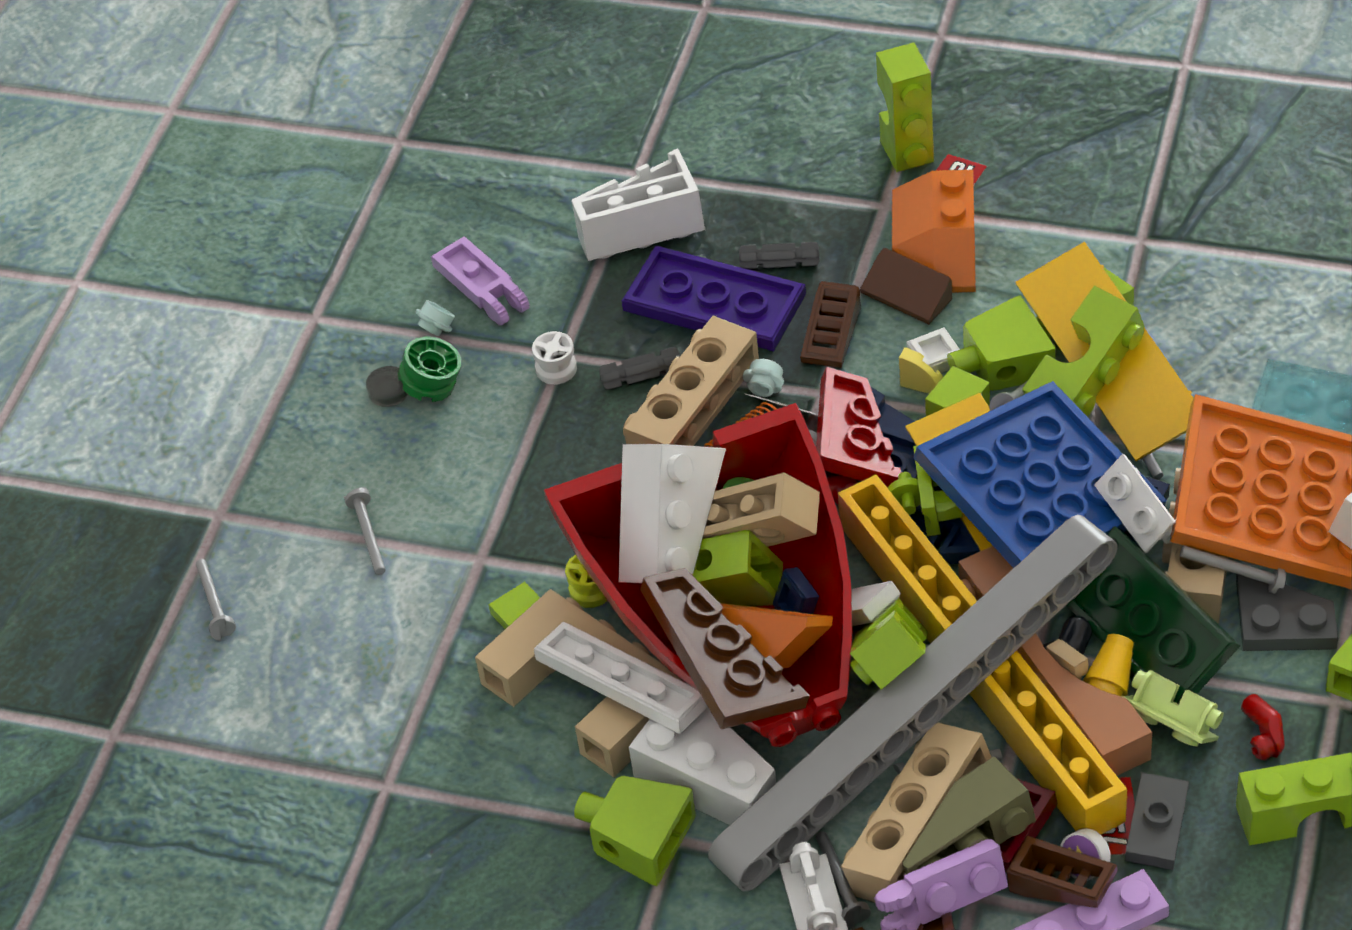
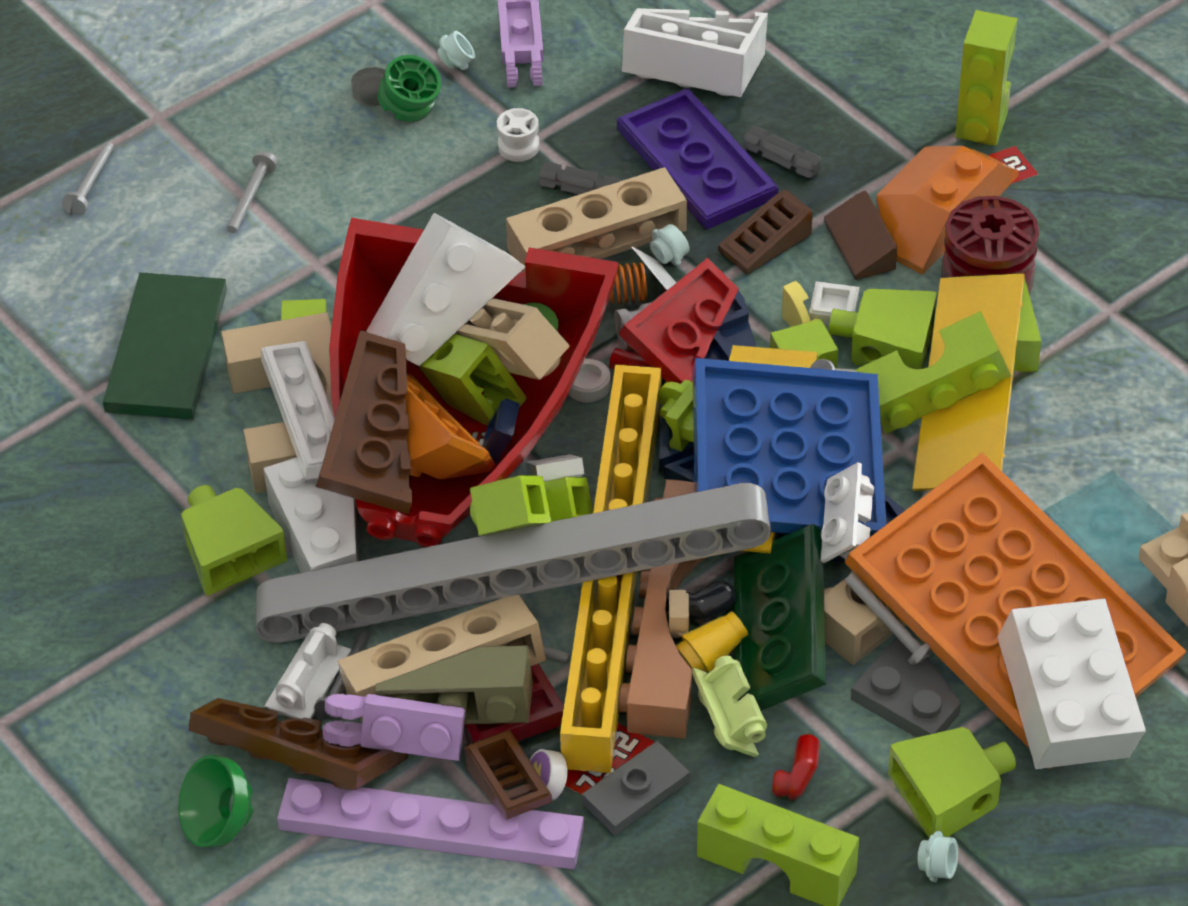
camera: 30 degrees right, 0 degrees up
(420, 700) = (165, 346): none -> dark green tile
(1022, 235) = (990, 239): none -> dark red wheel

